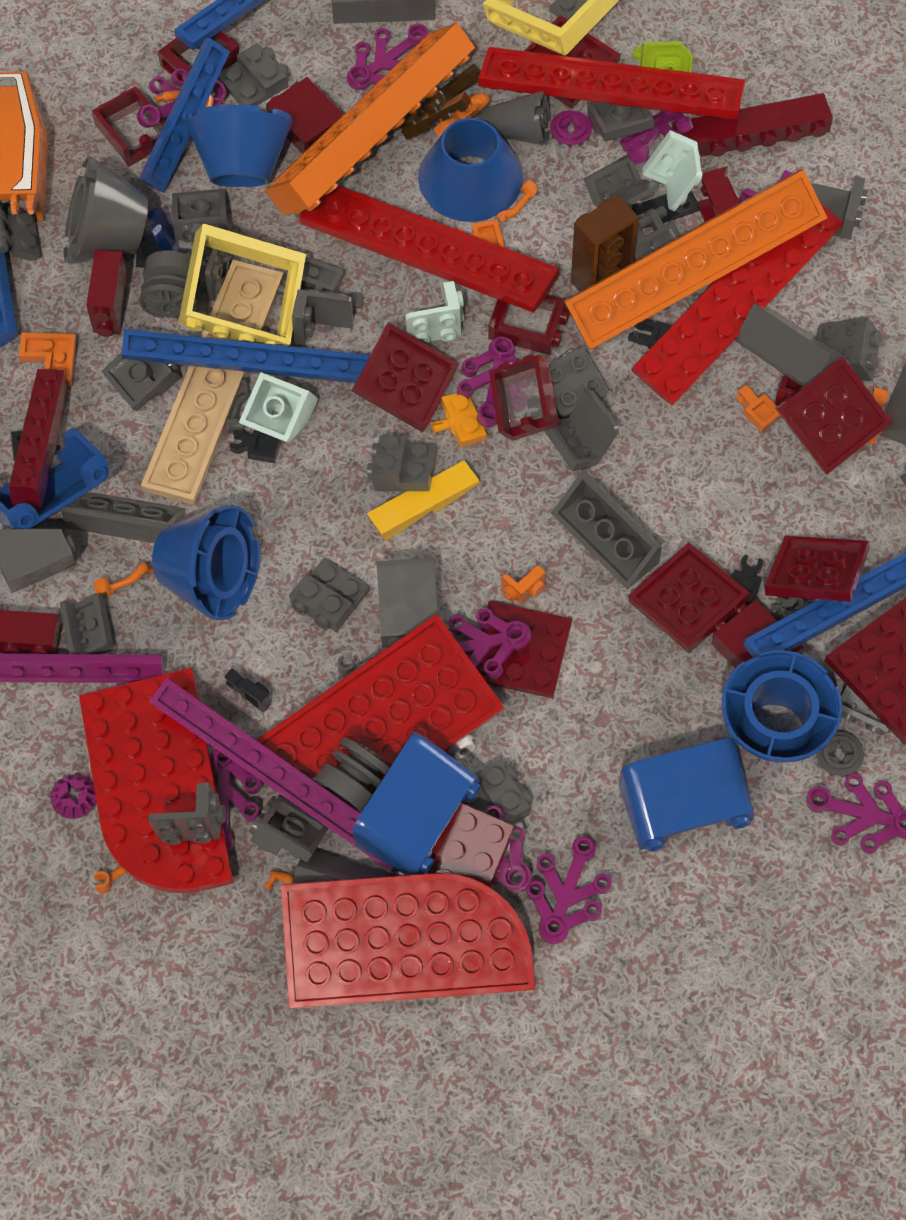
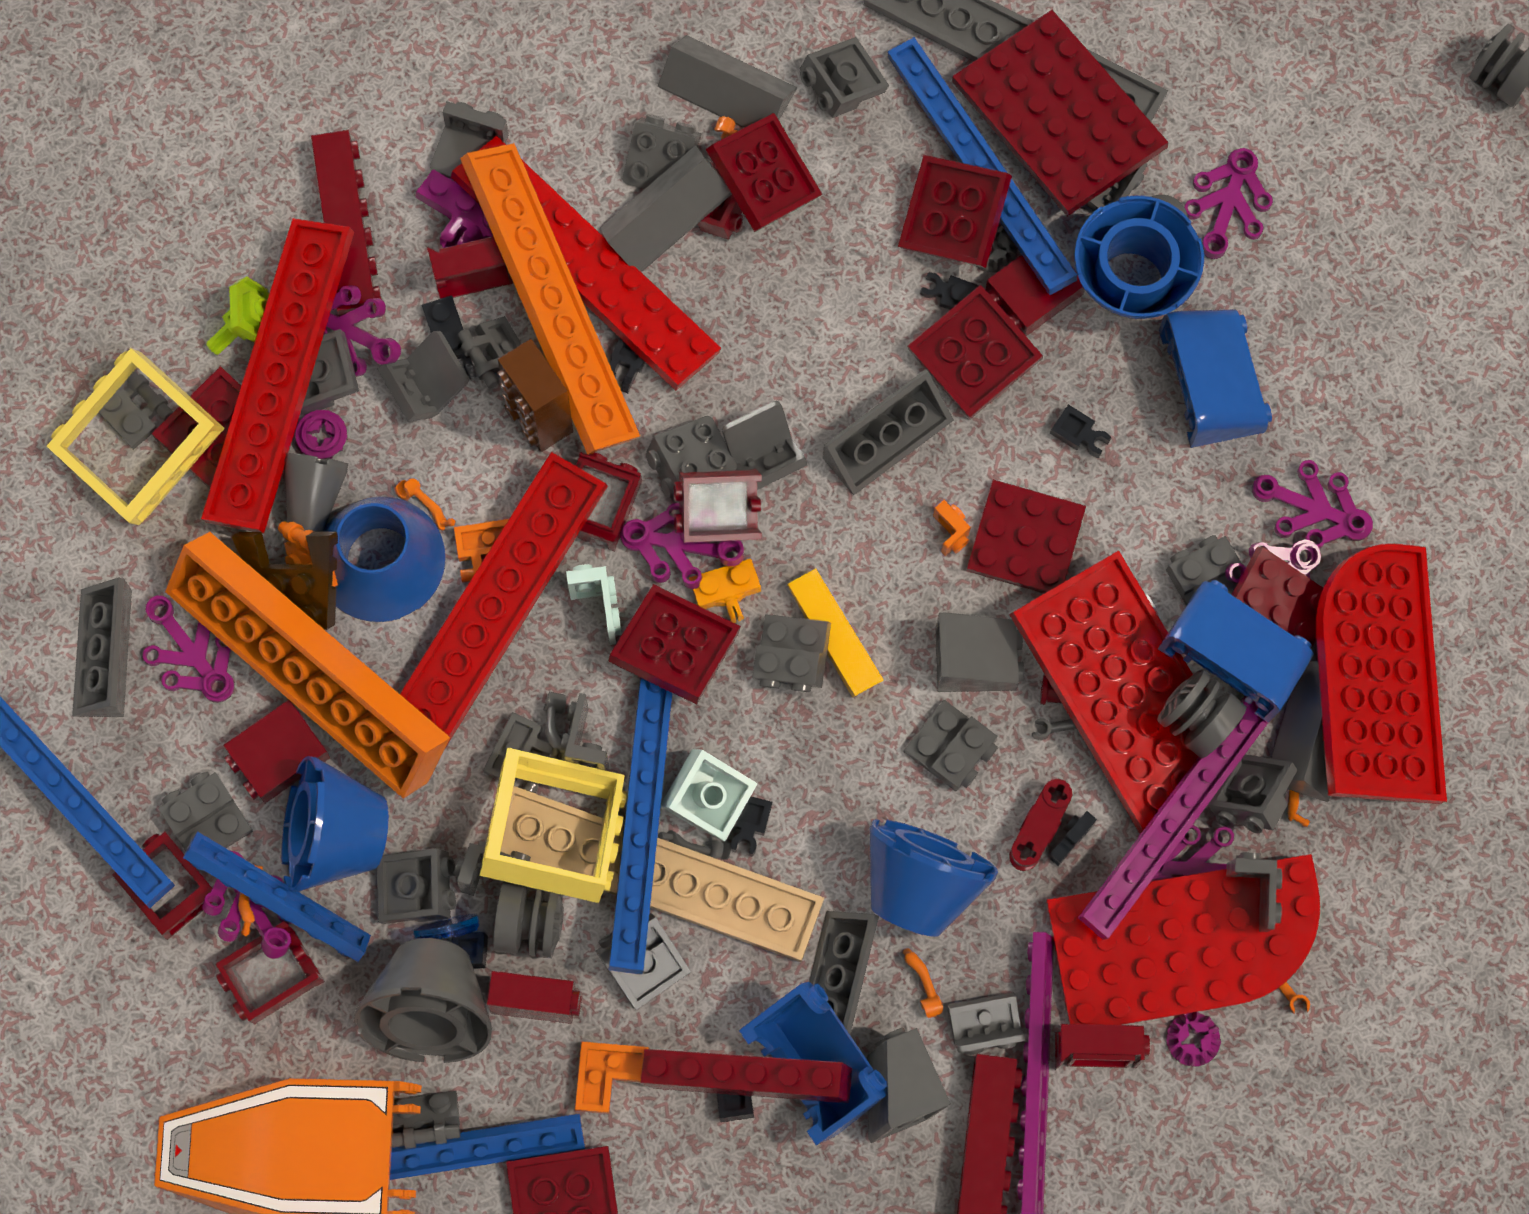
camera: 90 degrees left, 10 degrees up
(61, 709) = (1101, 1045): none -> dark red window
(259, 664) = (1040, 824): none -> dark red piece
(483, 643) = (1029, 572): magenta plant -> none
(624, 685) = (1076, 429): none -> black plate
(675, 165) = (418, 305): light aqua bracket -> none
(758, 411) = (736, 254): orange plate -> none

